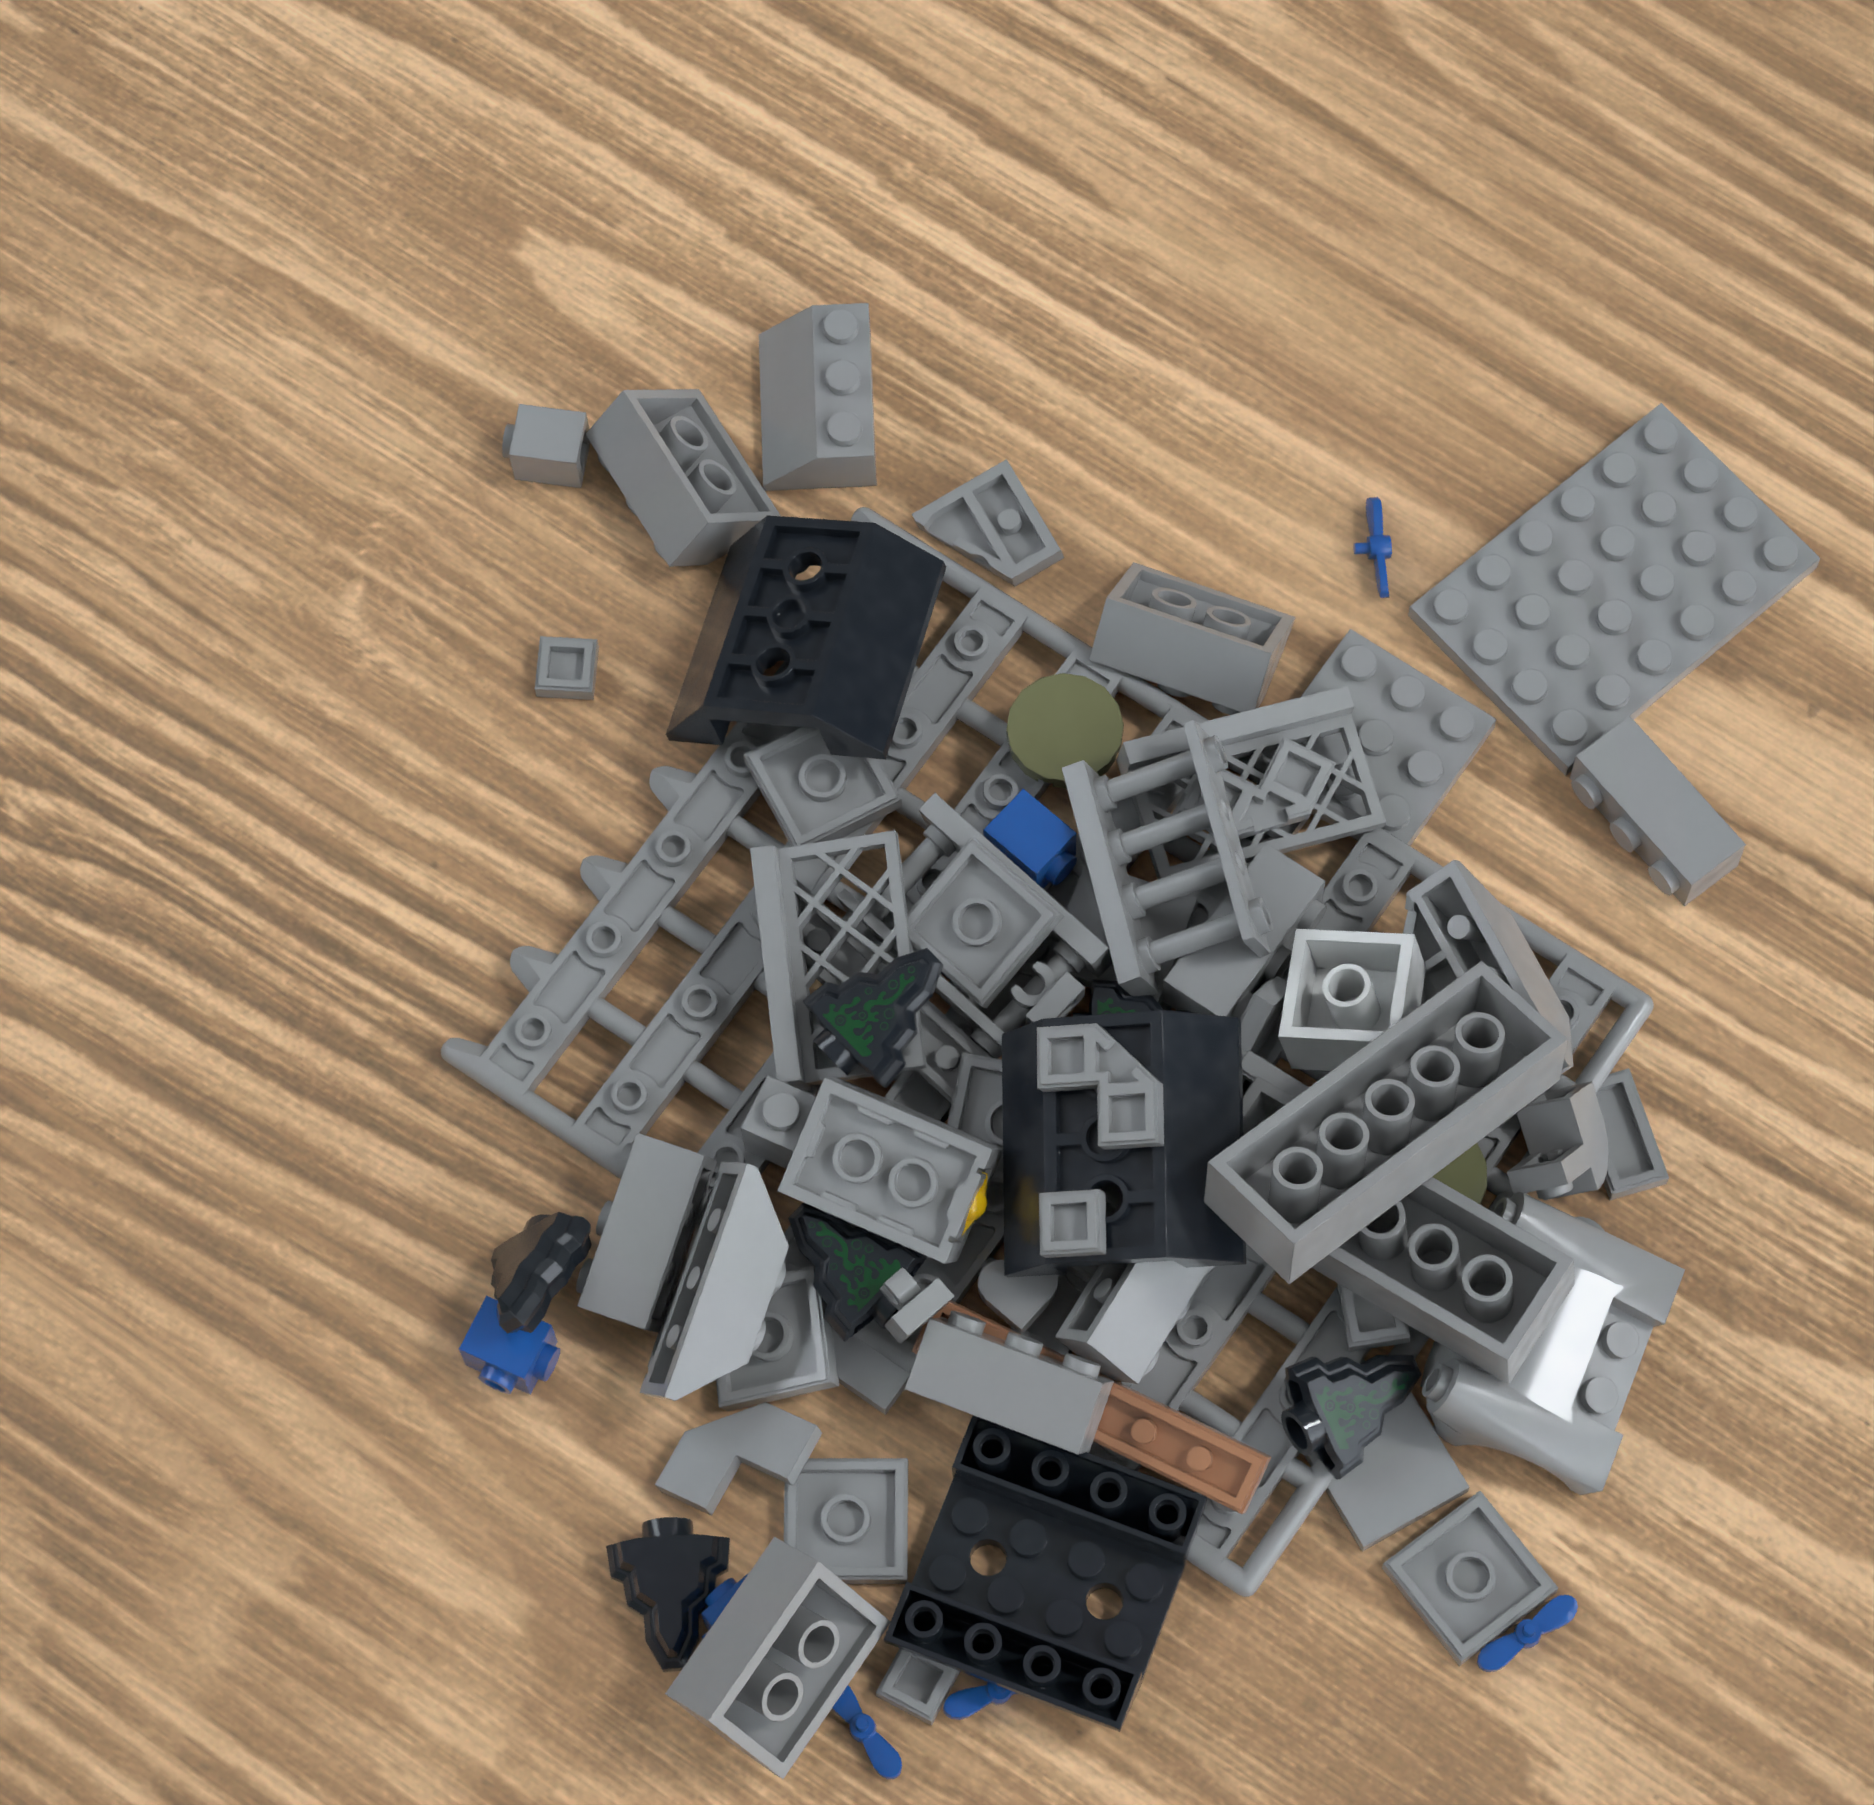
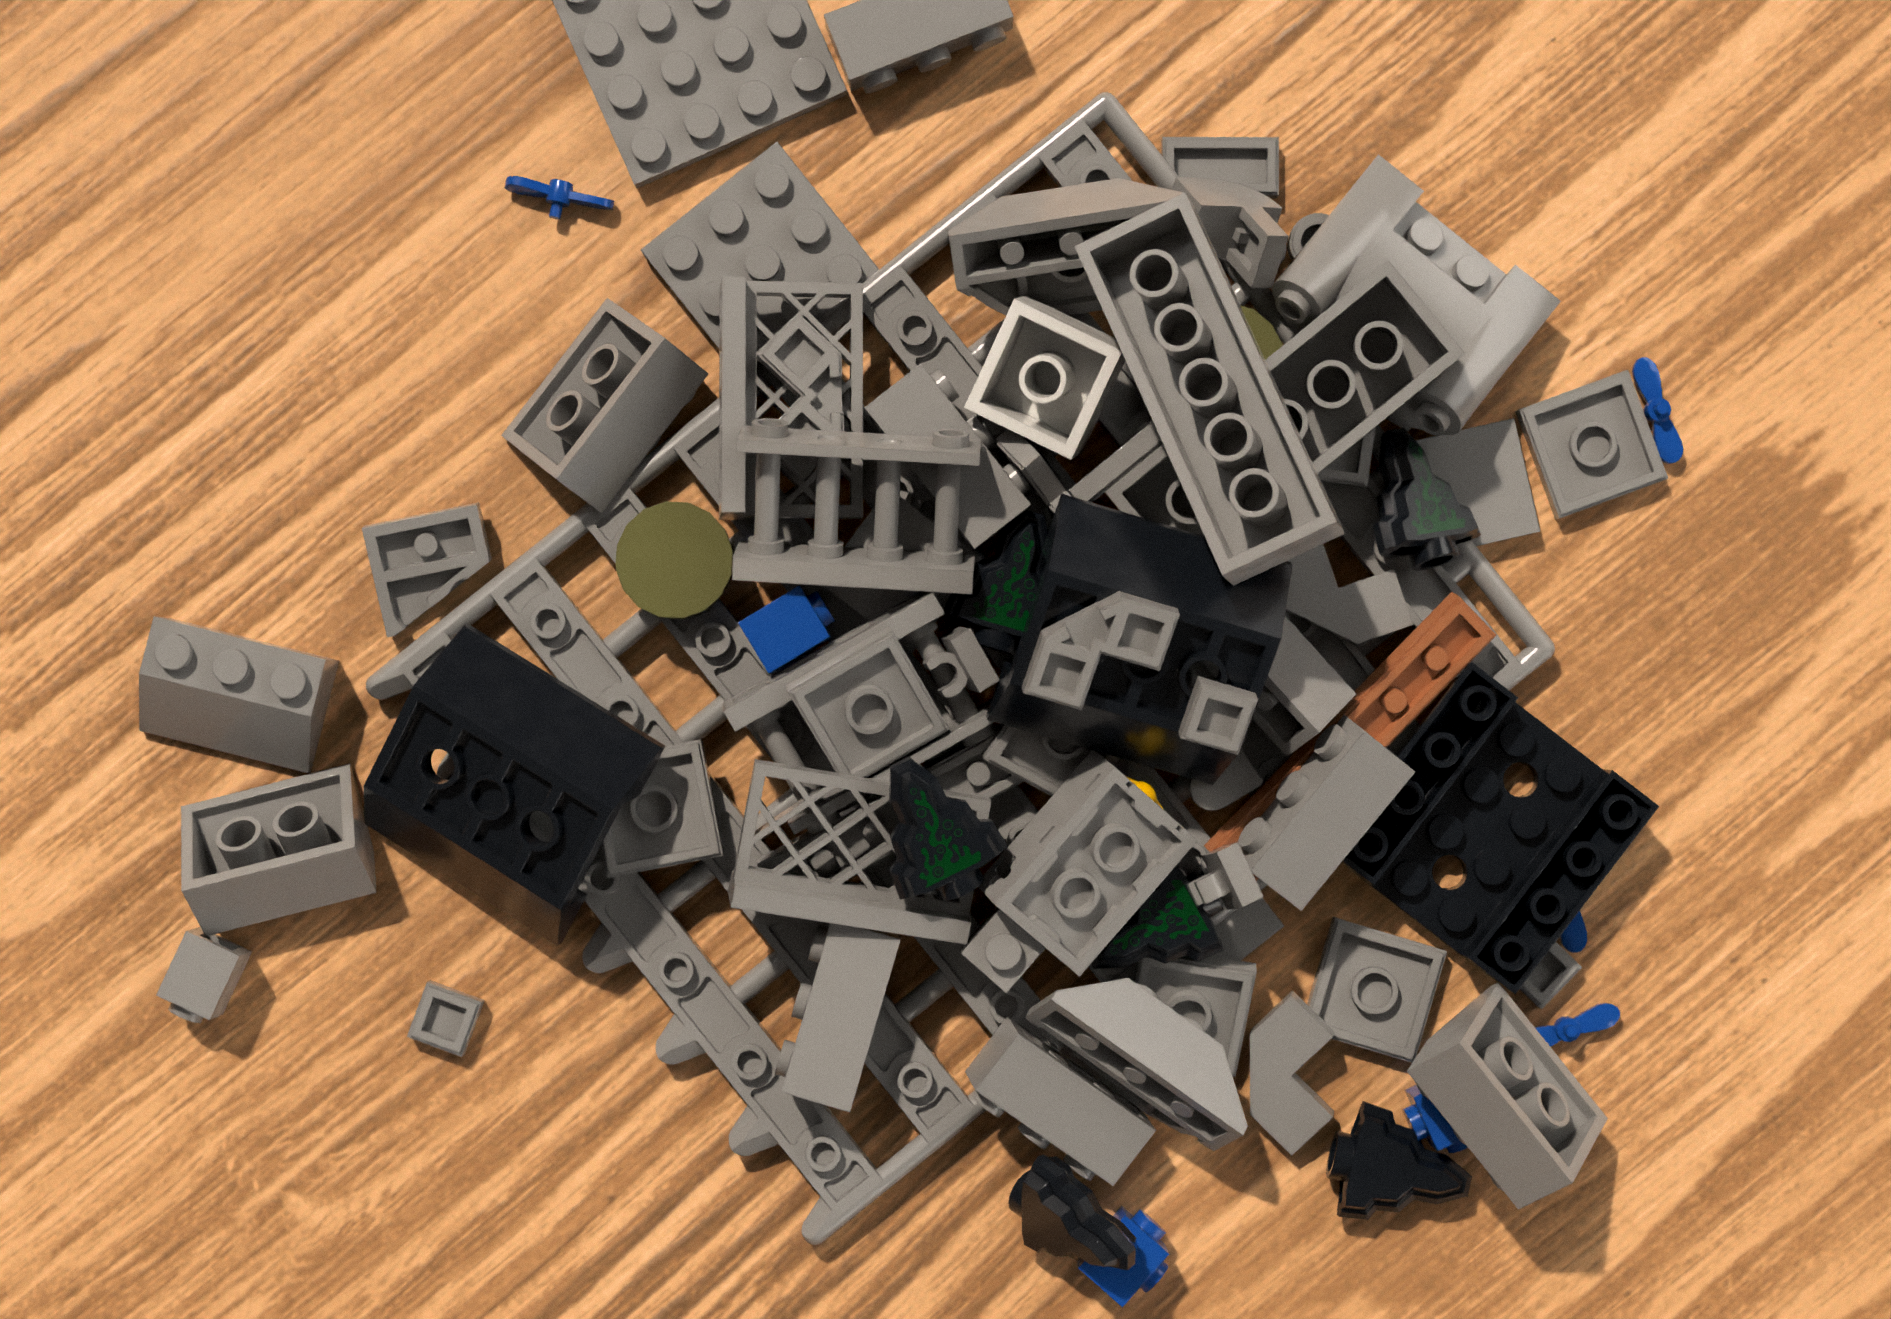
camera: 80 degrees left, 20 degrees up
(675, 995) = (837, 1014): none -> light grey brick
(1220, 1369) = (1352, 611): none -> light grey tile

